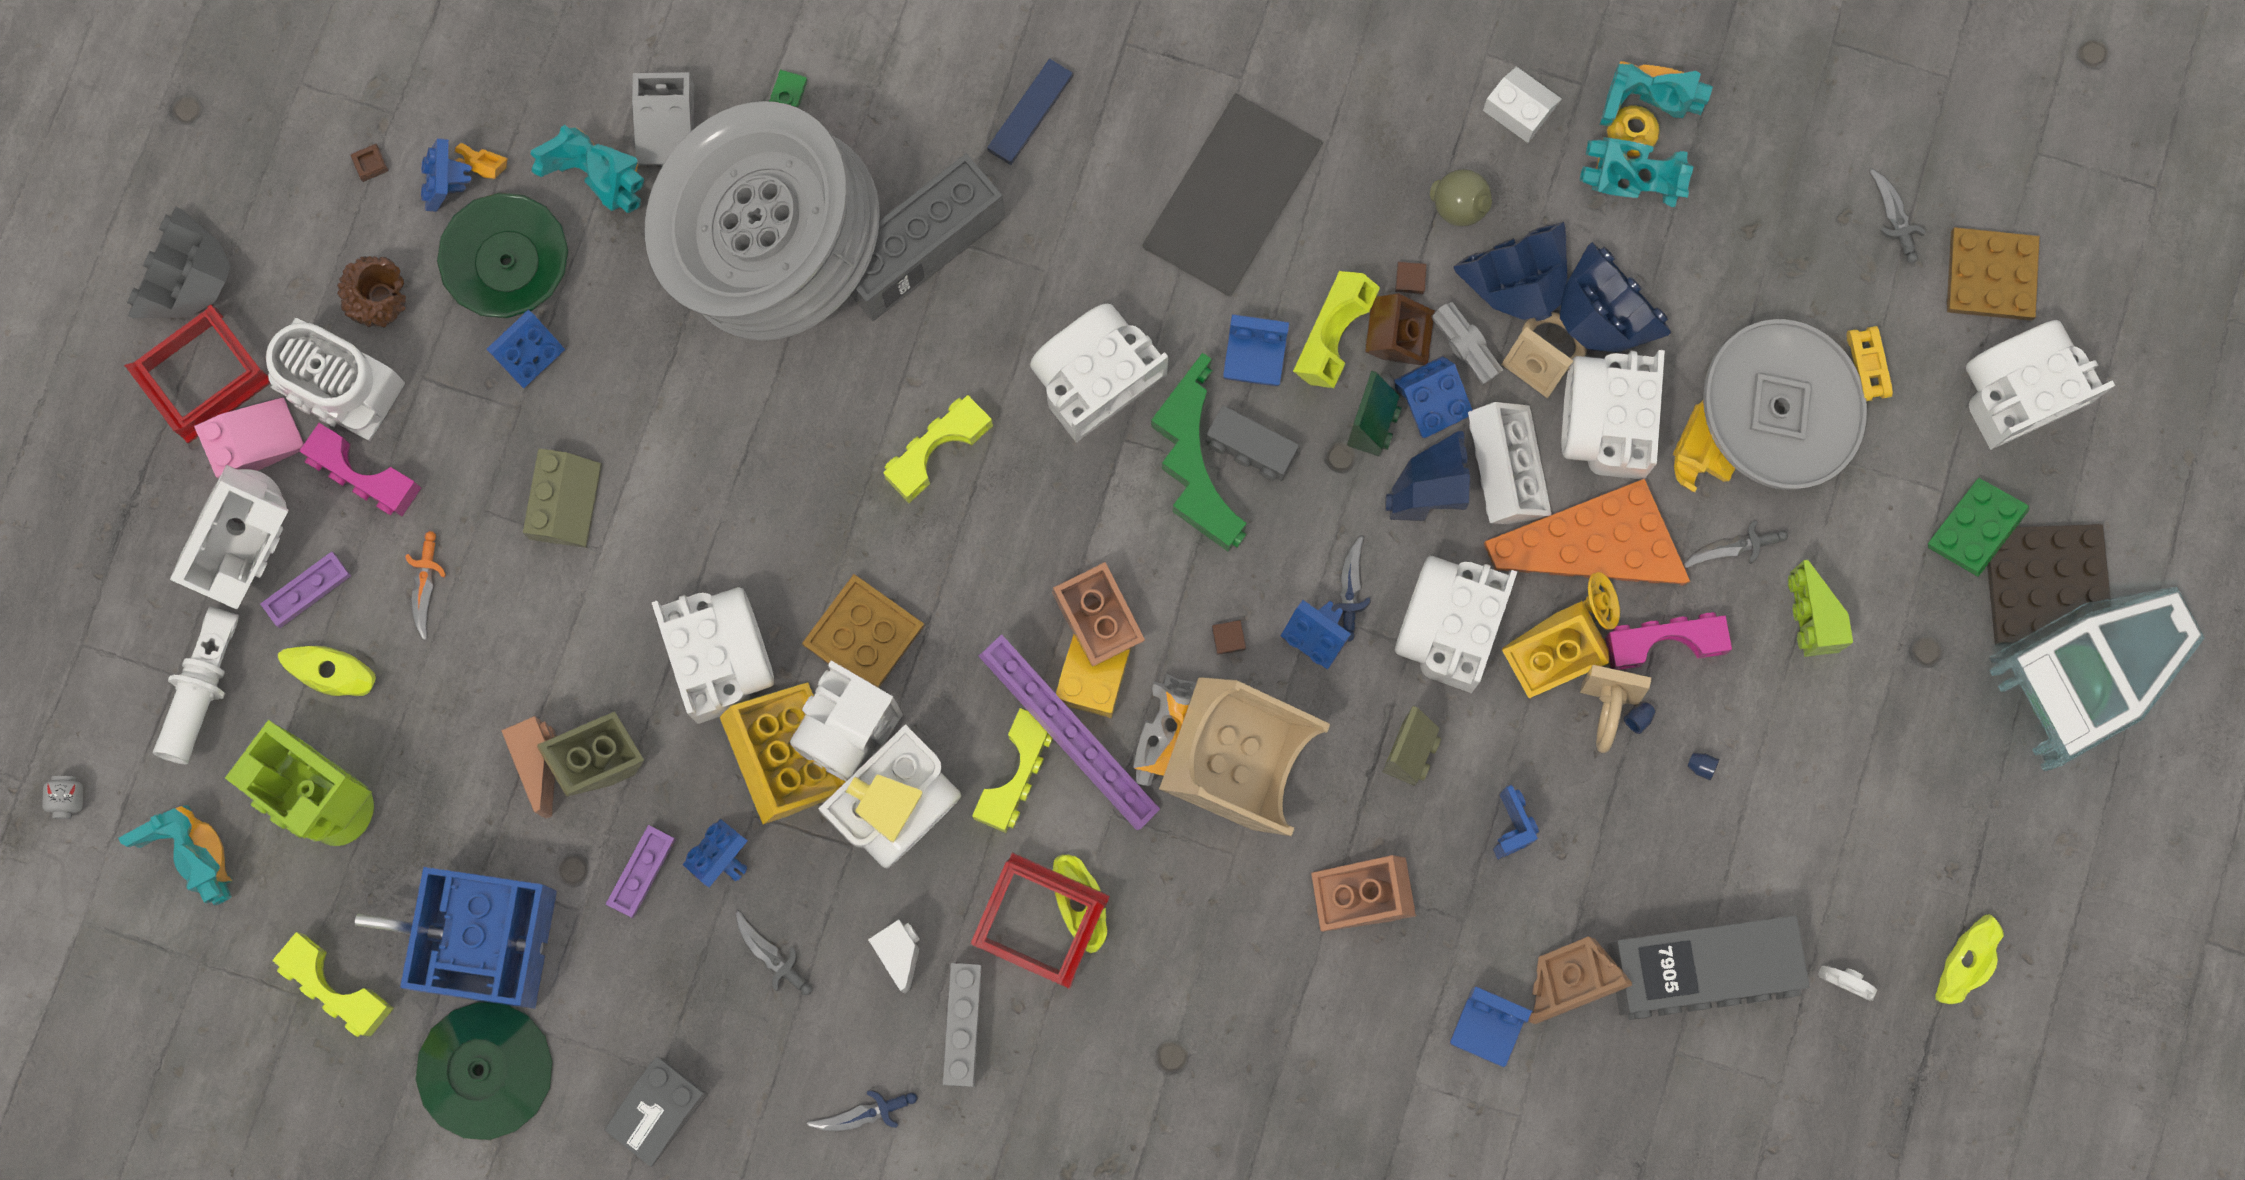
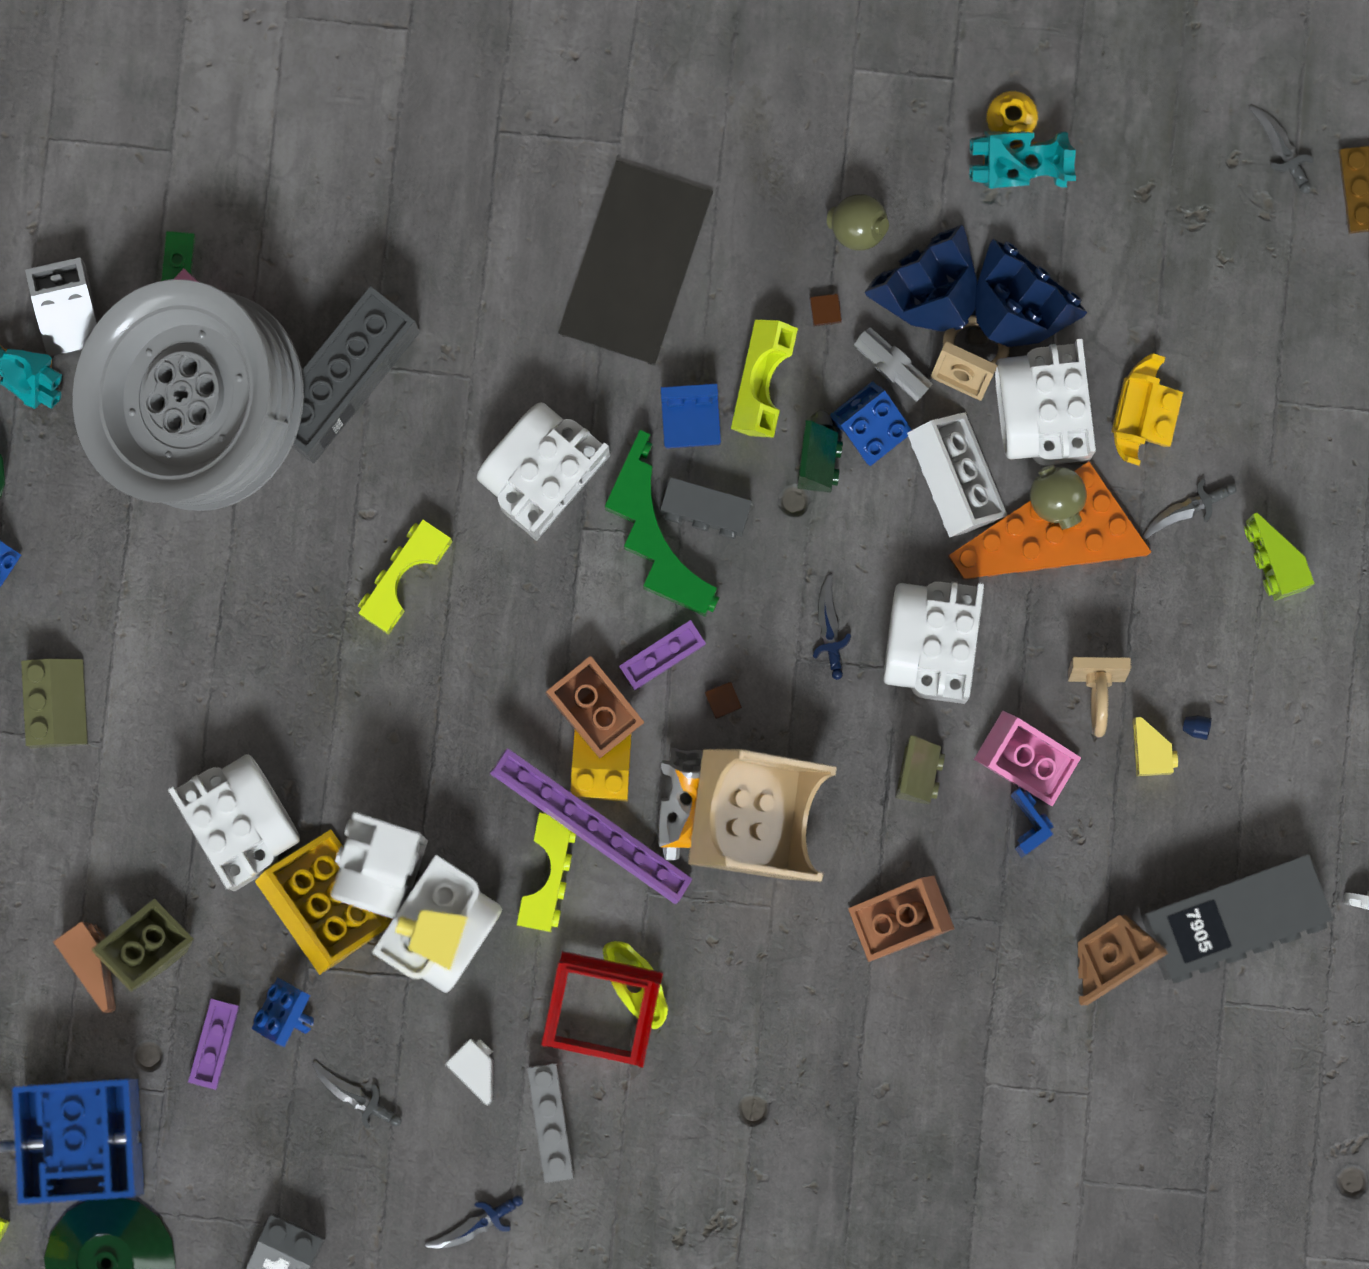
camera: 10 degrees left, 5 degrees up
(863, 632) = (373, 772): pearl gold plate -> none
(1030, 111) = (420, 221): dark blue tile -> none
(1177, 579) = (662, 655): none -> medium lavender plate
(1316, 632) = (806, 679): blue plate -> none
(1399, 330) = (825, 365): reddish brown slope -> none
(1432, 481) = (886, 509): dark blue brick -> none
(1489, 1026) = (1044, 1018): blue bracket -> none
(1521, 104) = (898, 112): white slope -> none
(1524, 759) = (1027, 758): none -> bright pink slope
(1557, 650) = (1038, 647): yellow slope -> none
(1598, 601) = (1064, 594): yellow dish -> none
(1608, 503) = (1058, 496): none -> olive brick
(1639, 717) = (1129, 693): dark blue hose -> none
(1652, 779) = (1152, 750): none -> light yellow slope
(1659, 86) = (1033, 68): teal hips -> none
(1704, 636) = (1175, 603): dark pink arch -> none
(1820, 398) = (1245, 356): light grey dish -> none
(1870, 362) = (1283, 301): yellow plate -> none

